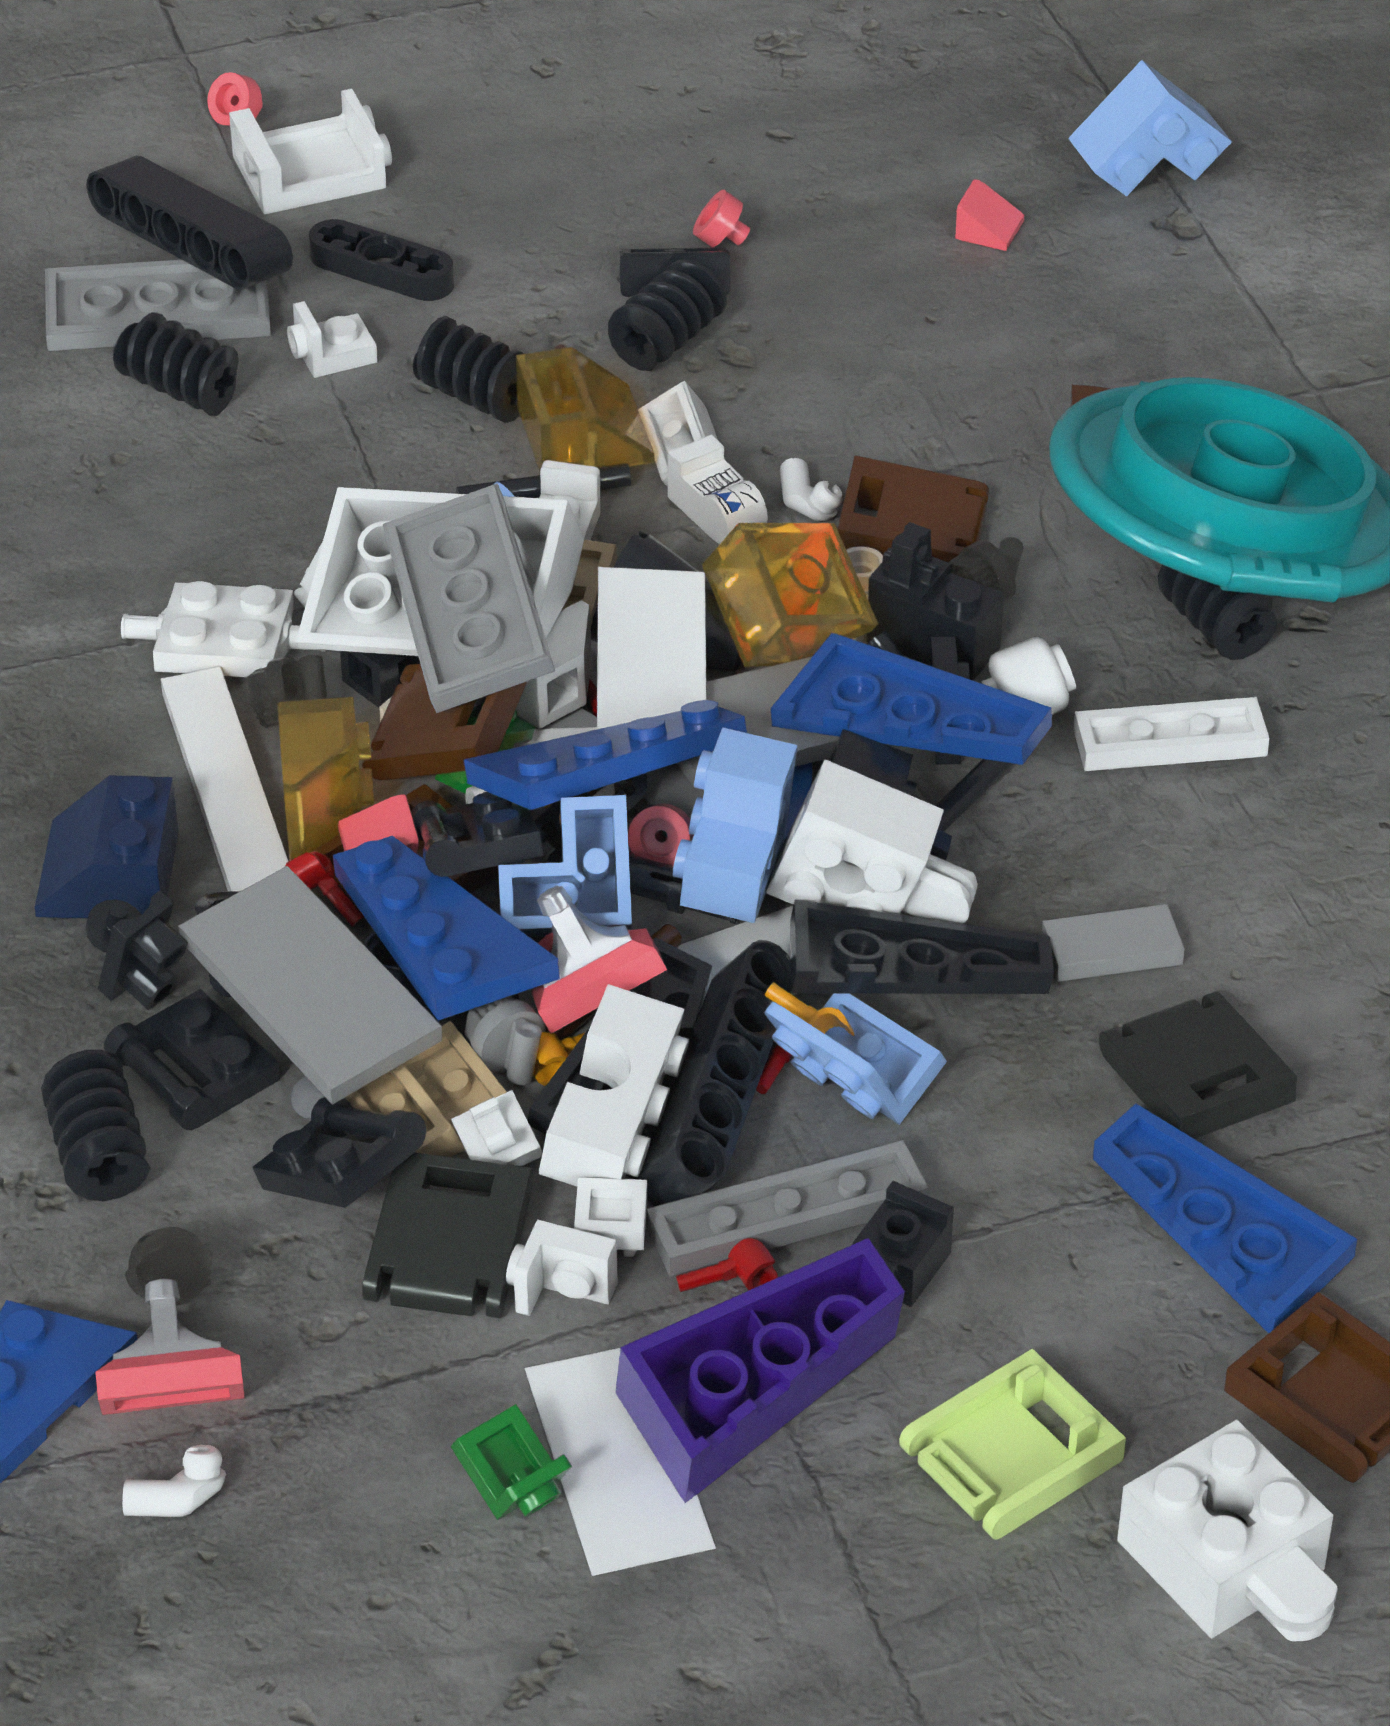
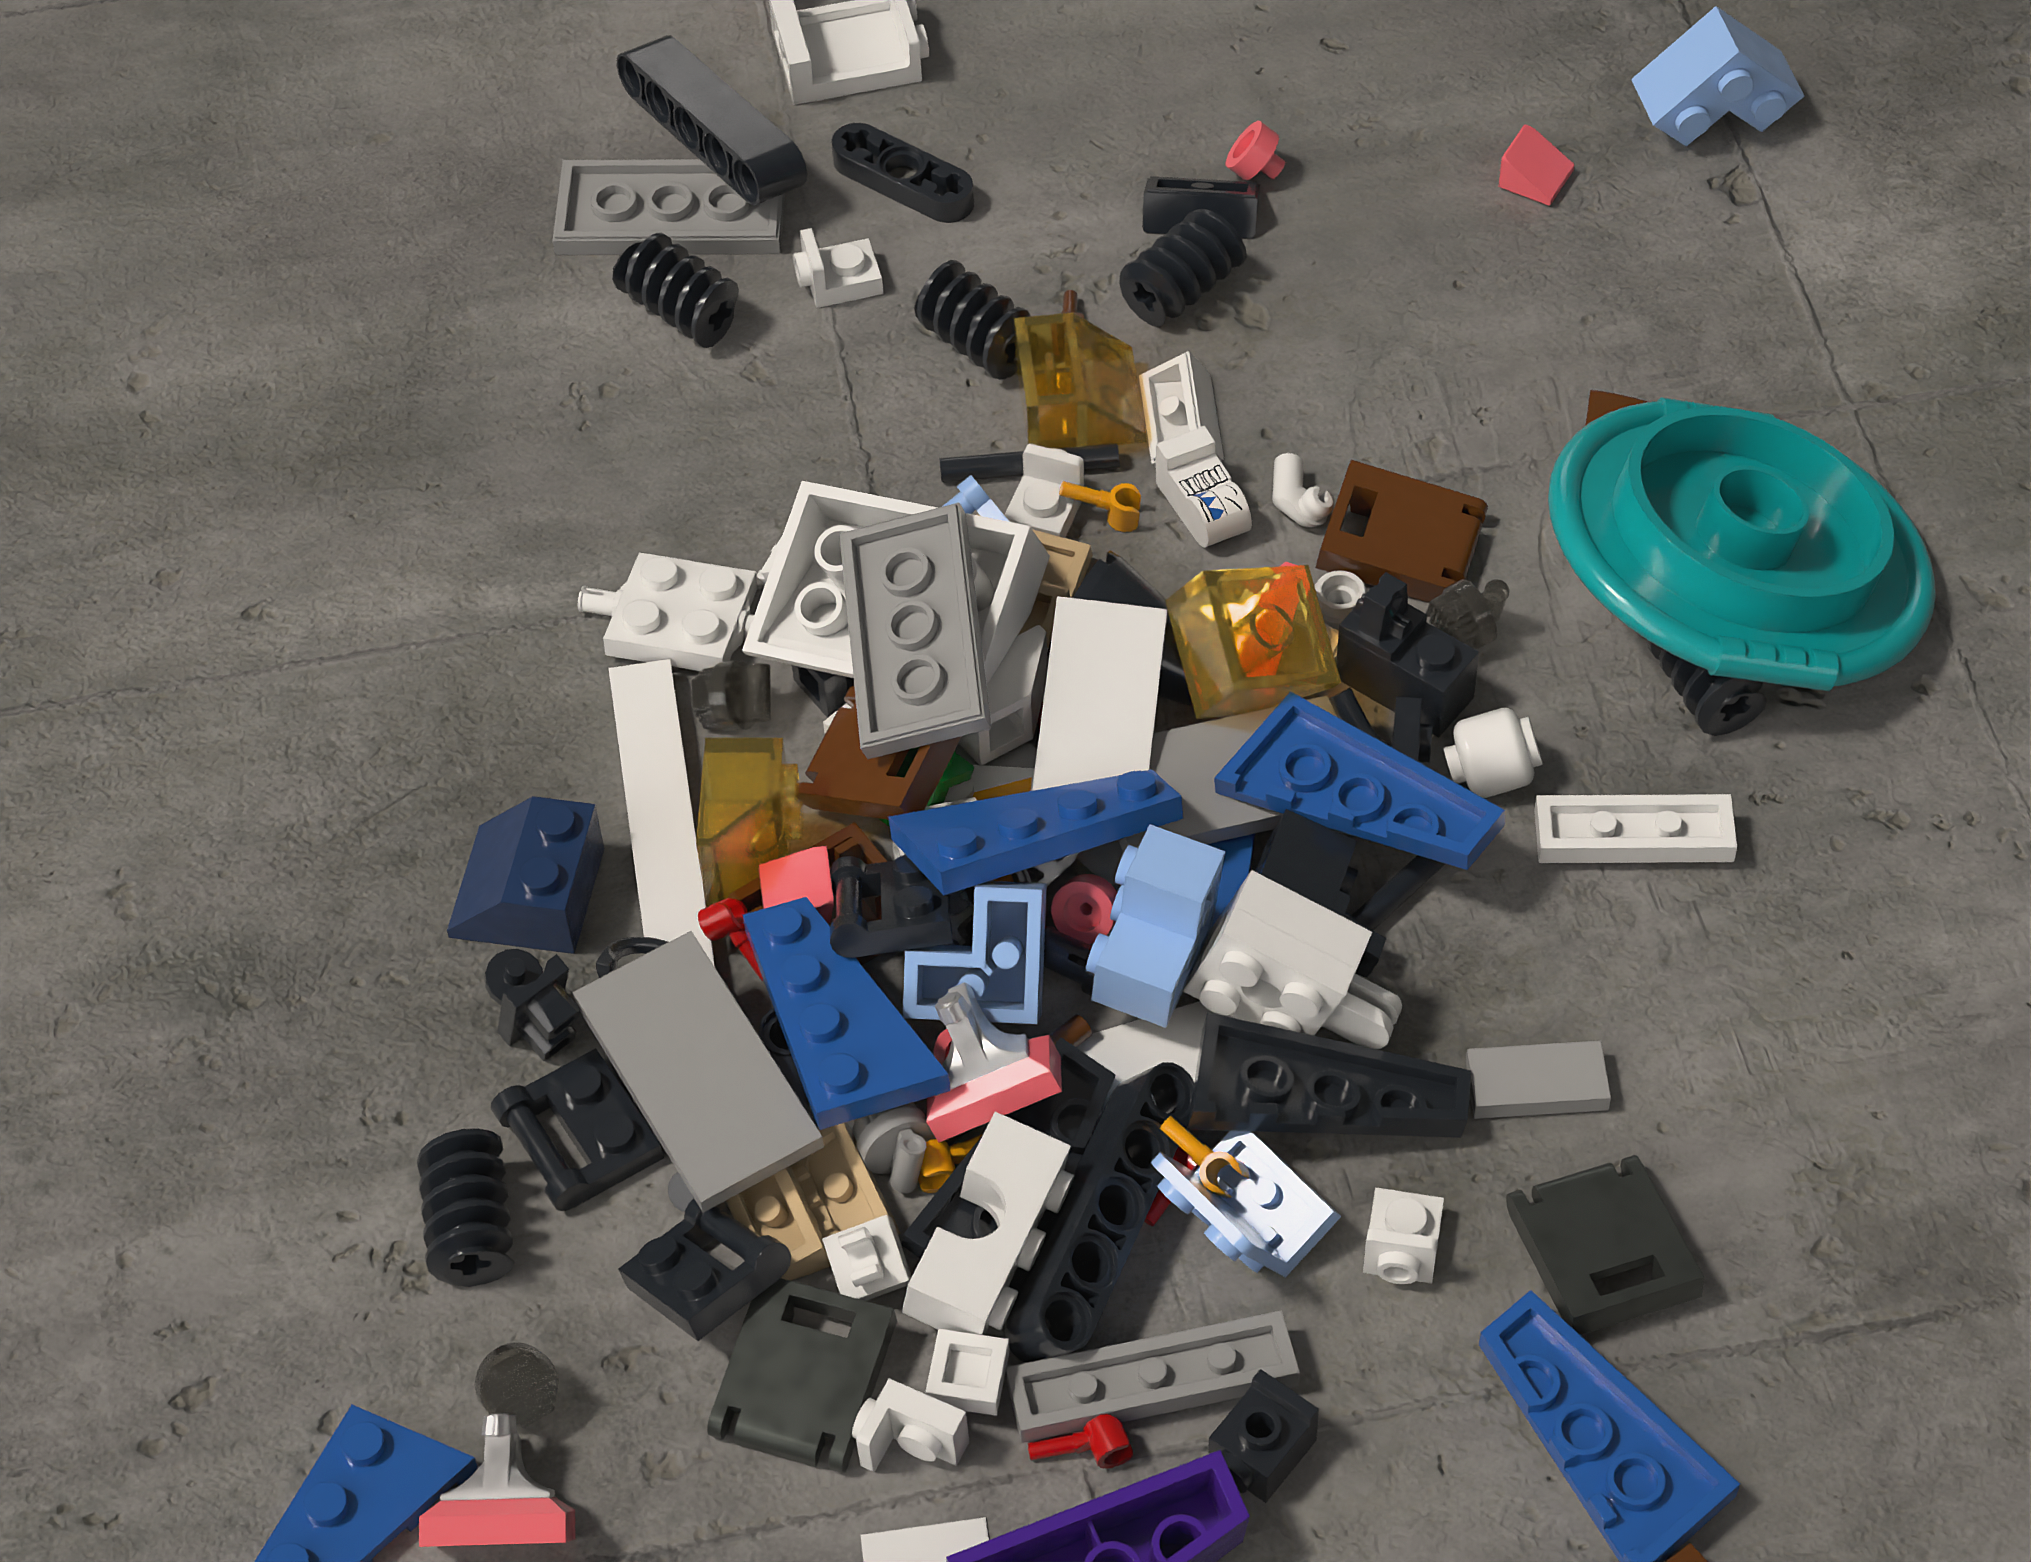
camera: 10 degrees right, 10 degrees up
(638, 509) = (1121, 503): none -> light orange hand
(1007, 1077) = (1403, 1236): none -> white bracket

